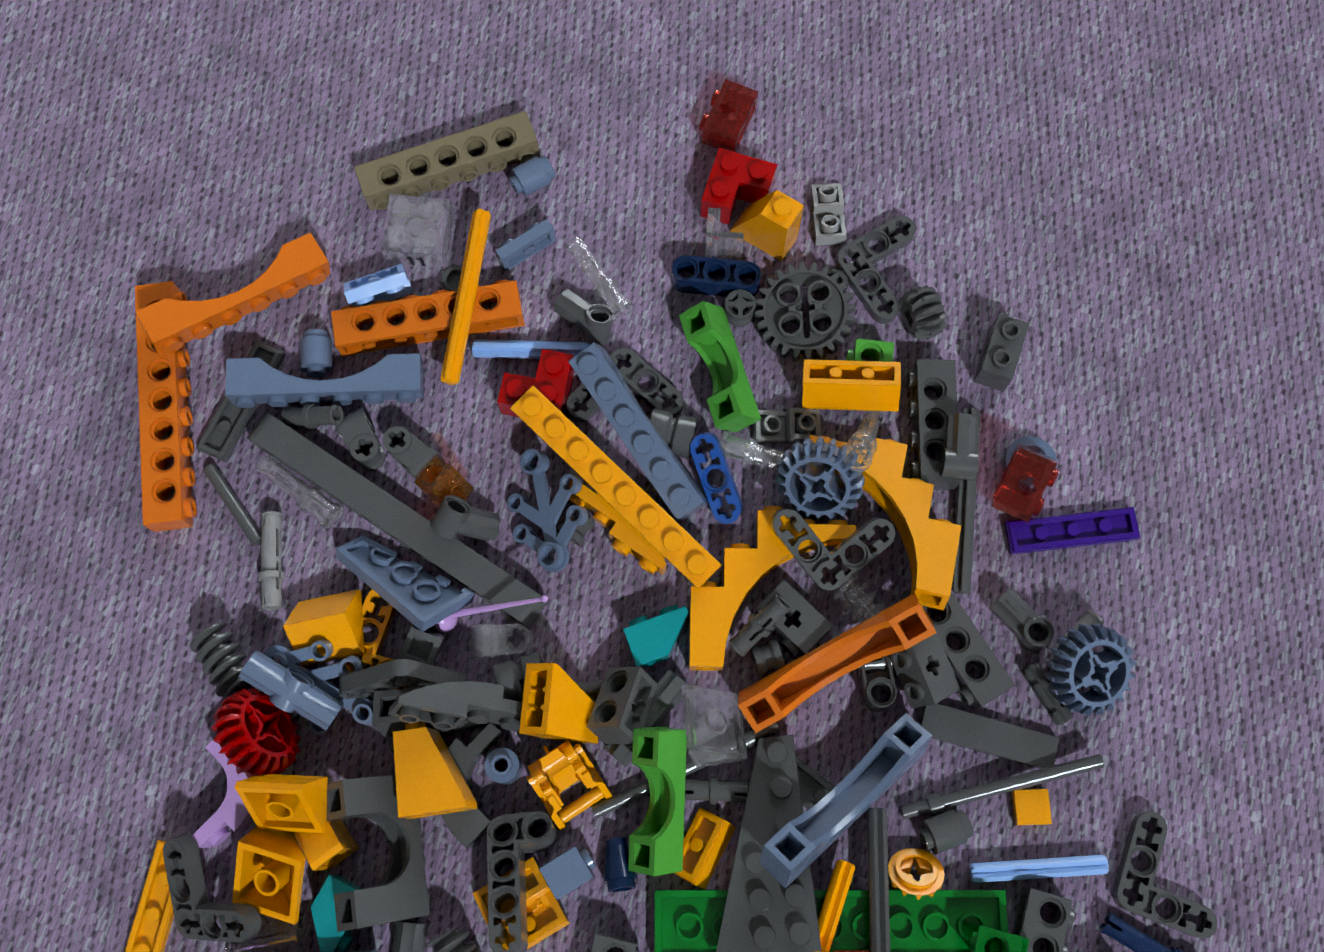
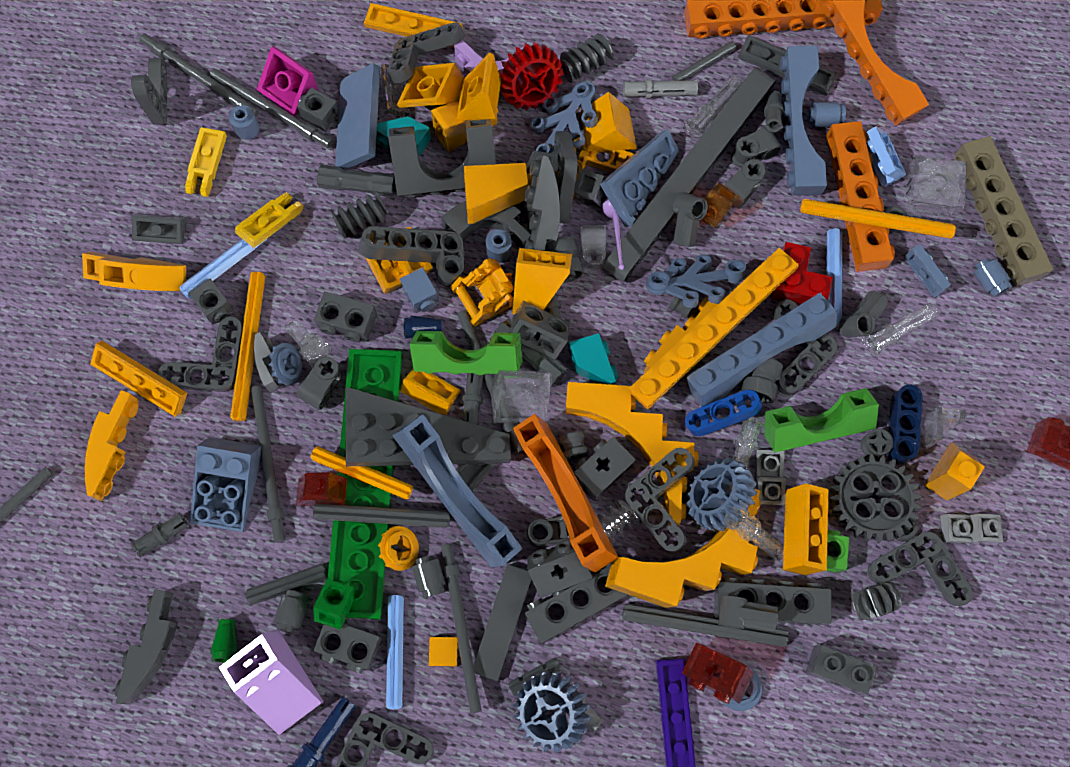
camera: 90 degrees right, 0 degrees up
(291, 690) = (560, 99): sand blue piece -> none
(735, 178) = (1000, 443): red brick -> none
(759, 625) = (597, 436): dark grey pin -> none
(1019, 618) = (598, 658): dark grey piece -> none

